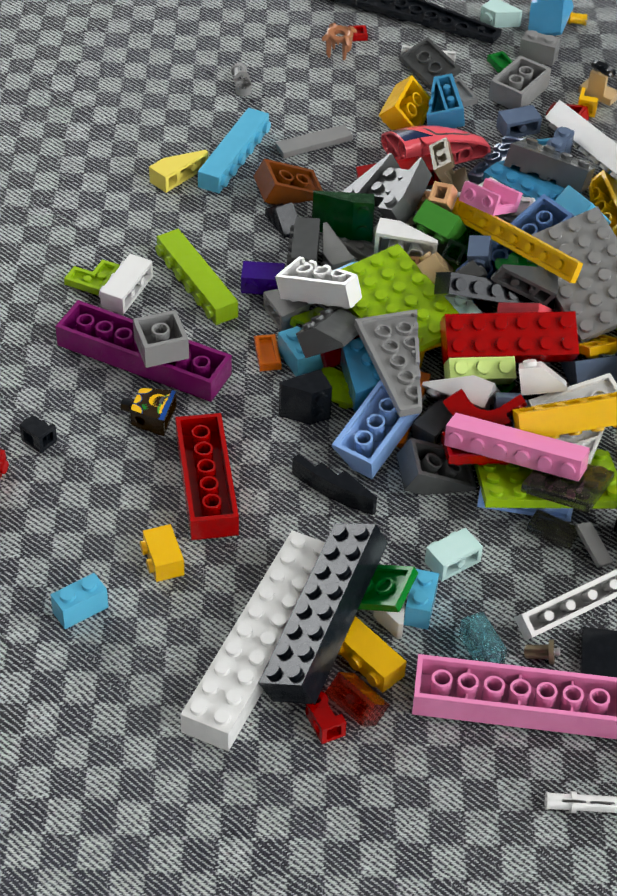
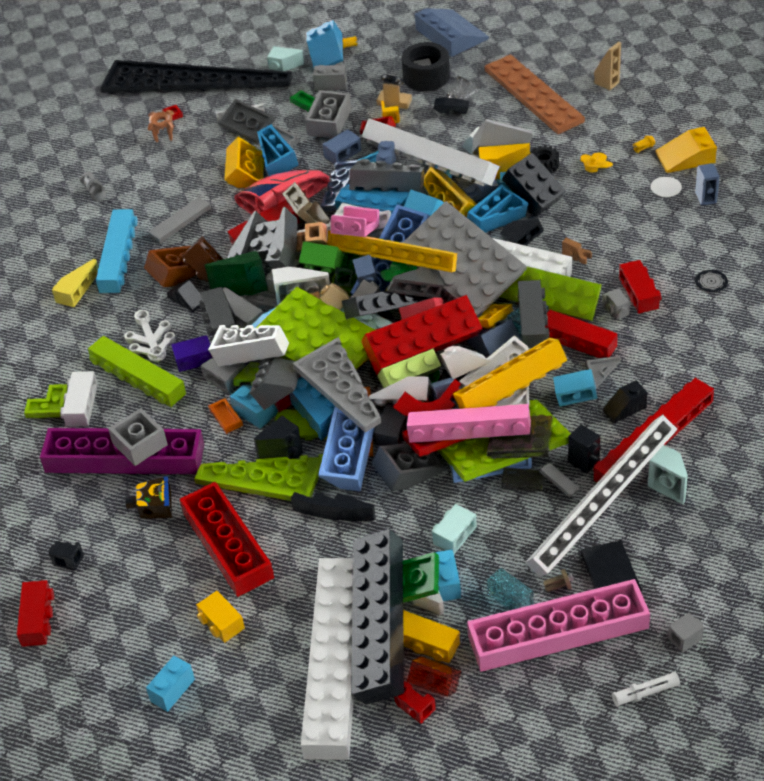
camera: 15 degrees left, 0 degrees up
(227, 265) = (155, 352): none -> white plant
(277, 428) = (265, 477): none -> lime wing
(317, 179) = (200, 254): none -> reddish brown slope

